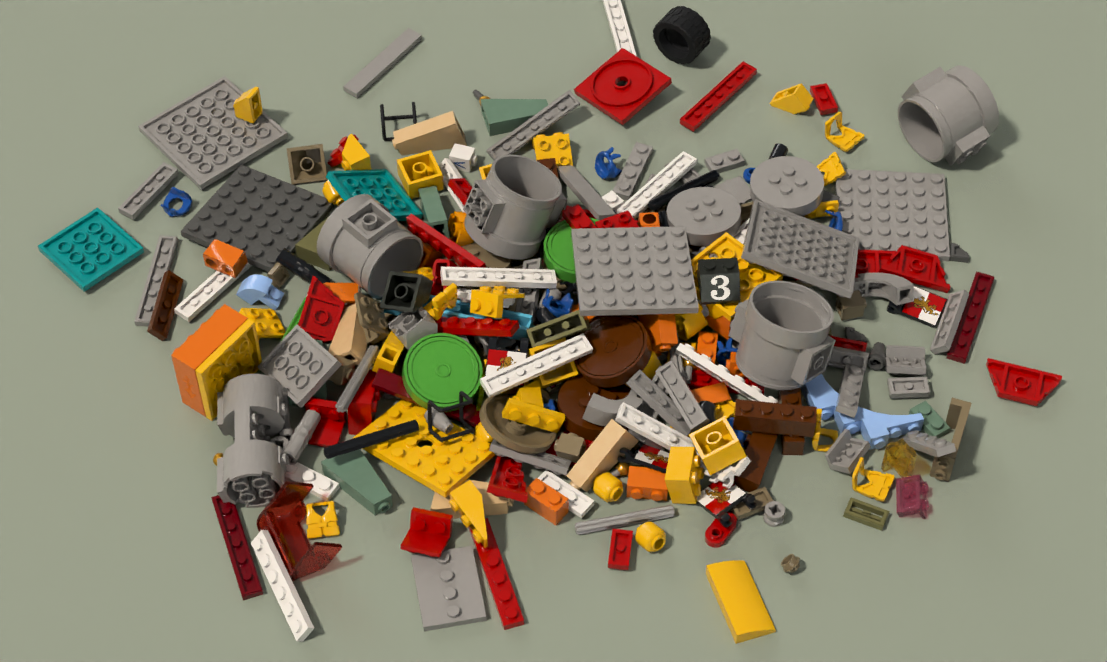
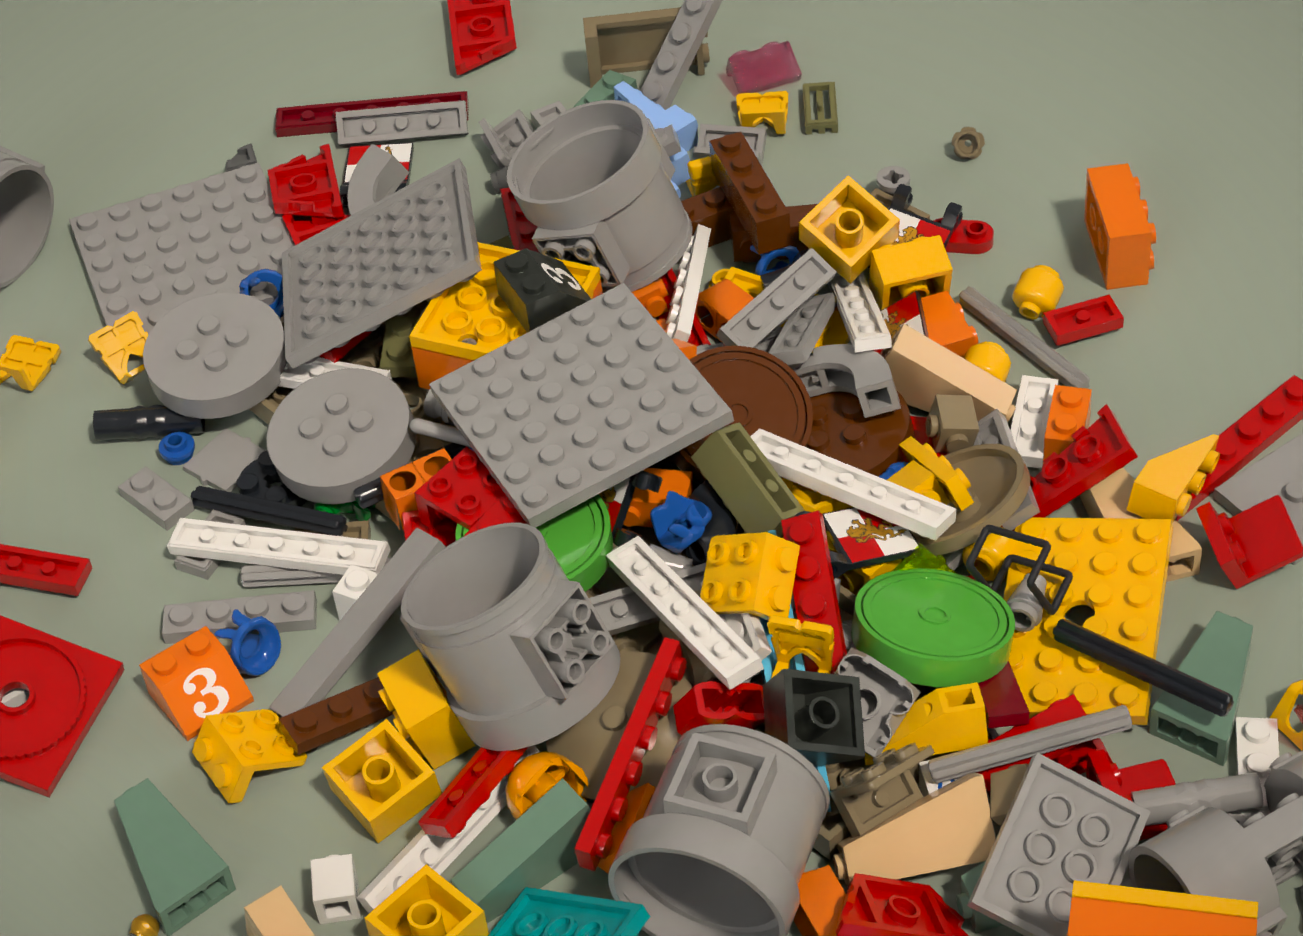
camera: 110 degrees left, 5 degrees down
(534, 126) = (203, 793): light grey tile -> none
(595, 139) = (195, 681): none -> orange slope
(670, 587) = (1119, 226): none -> orange brick
(739, 600) = (1059, 181): yellow slope -> none
(851, 334) = (488, 218): dark grey tile -> none
(900, 457) = (714, 81): clear yellow bracket -> none

